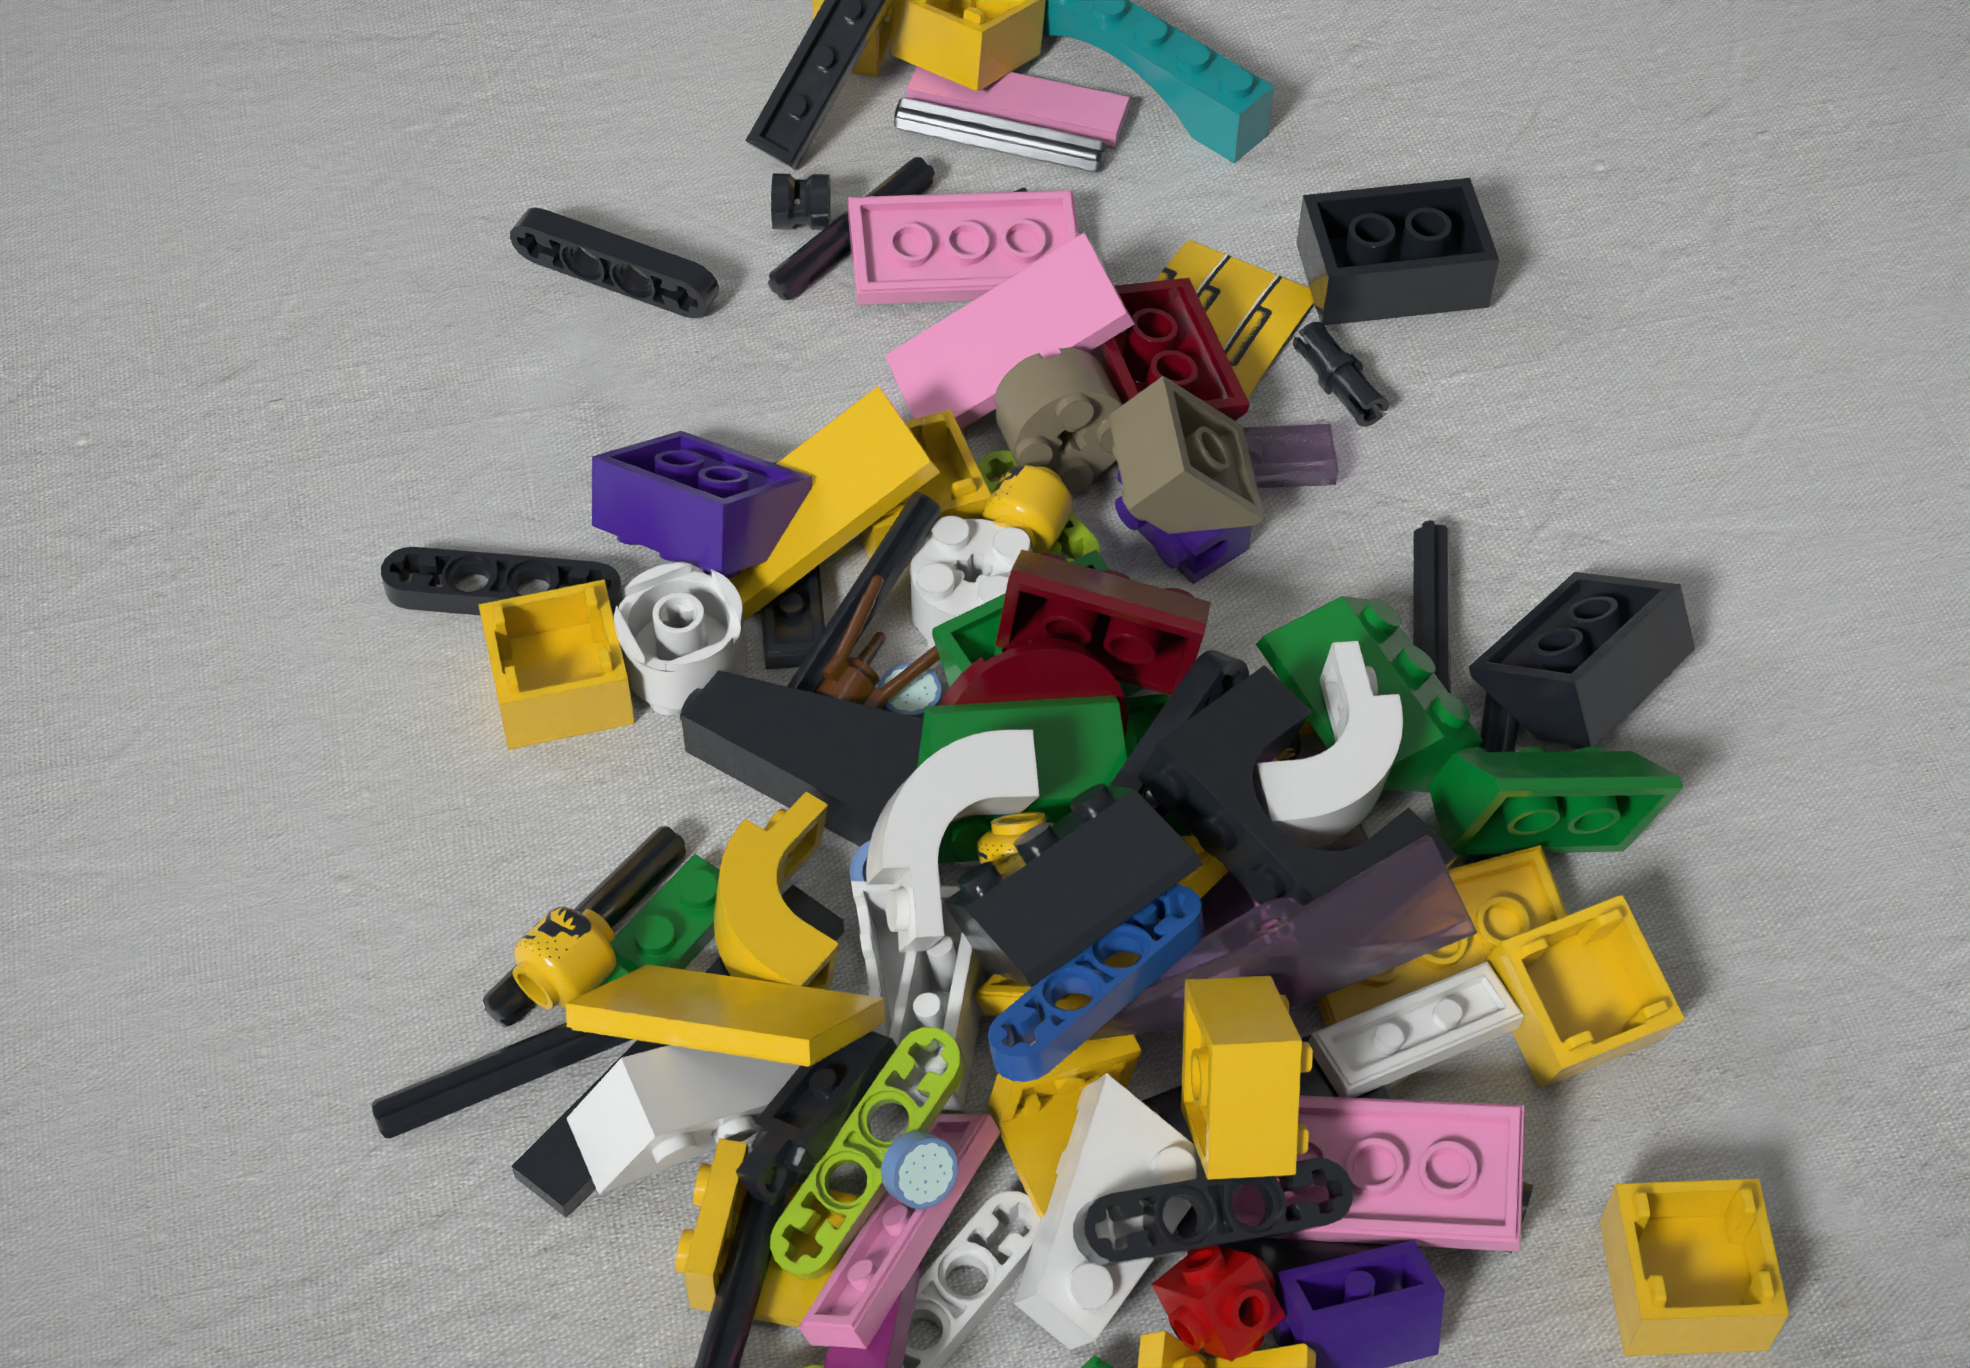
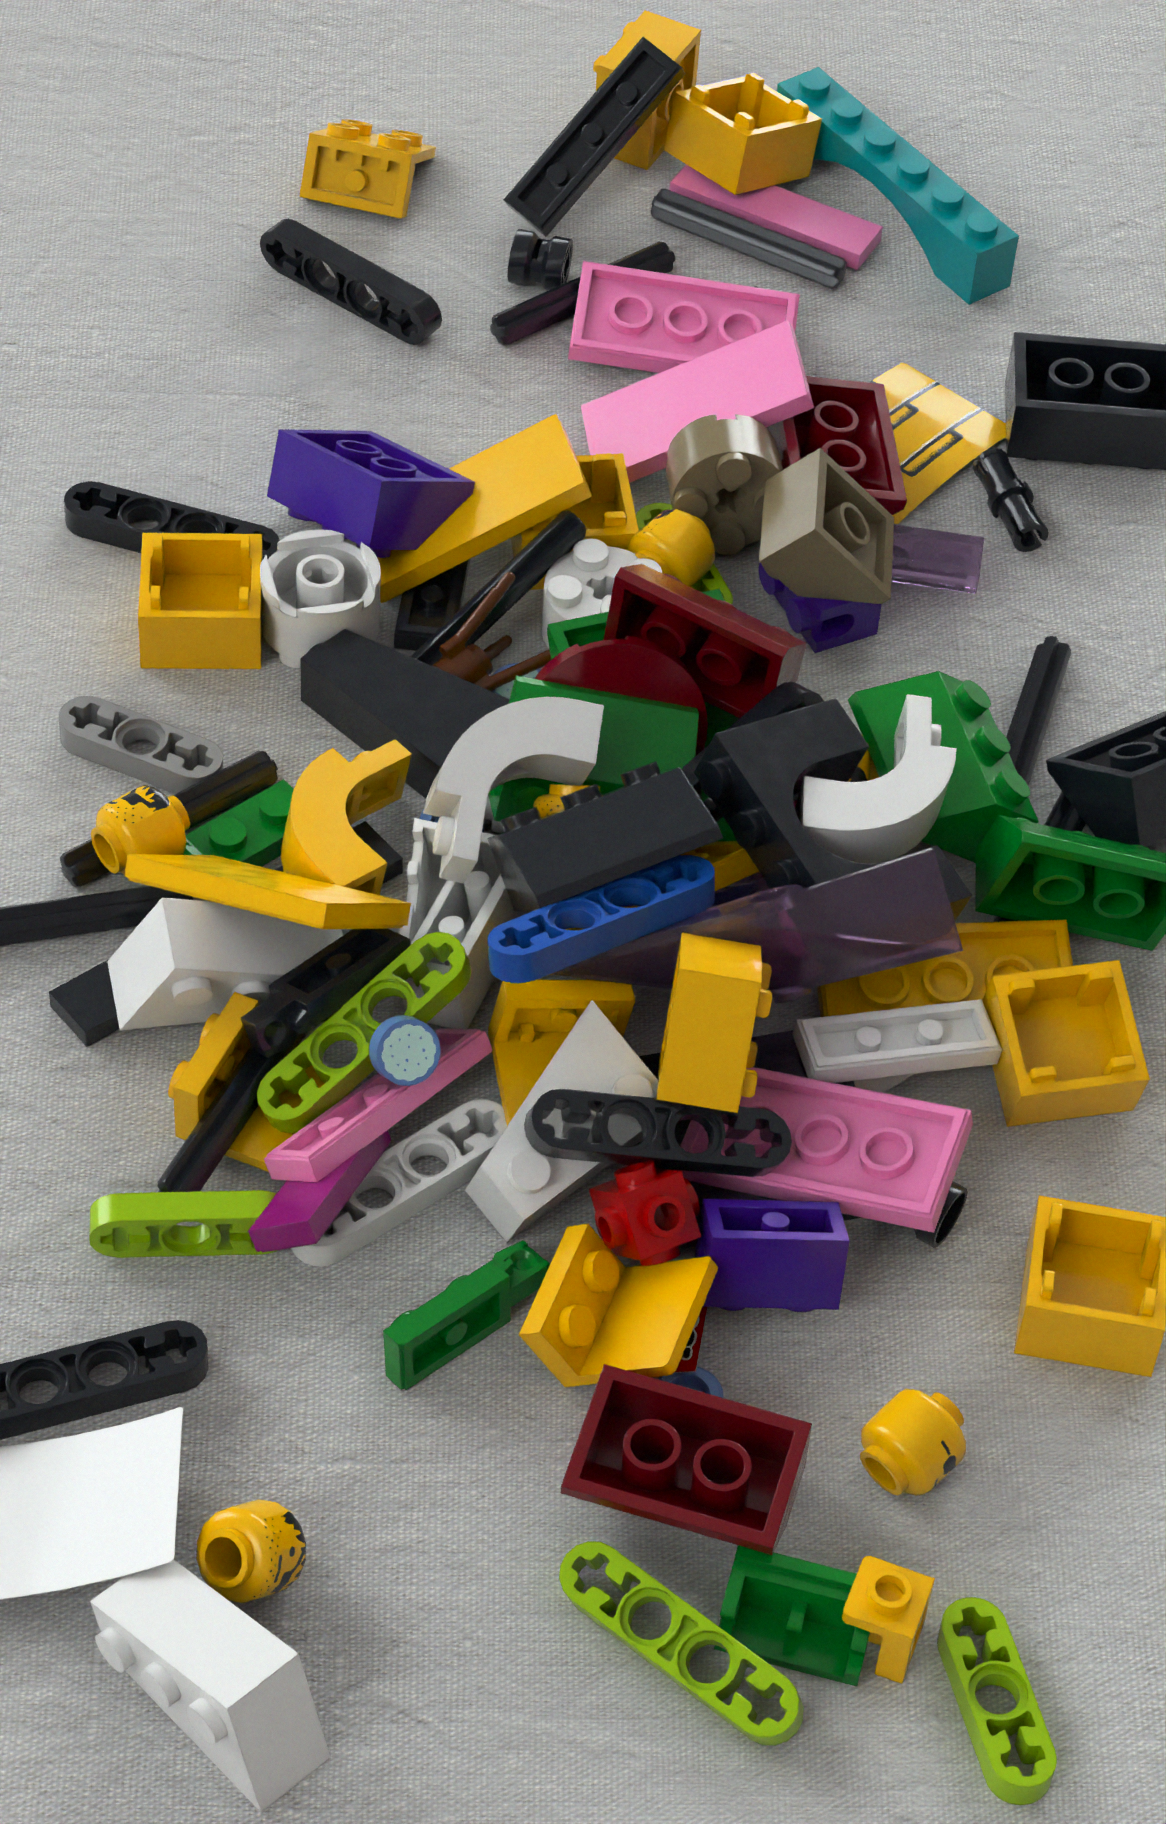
camera: 10 degrees right, 5 degrees down
(519, 824) = (90, 721): none -> light grey beam
(594, 131) = (362, 168): none -> yellow bracket

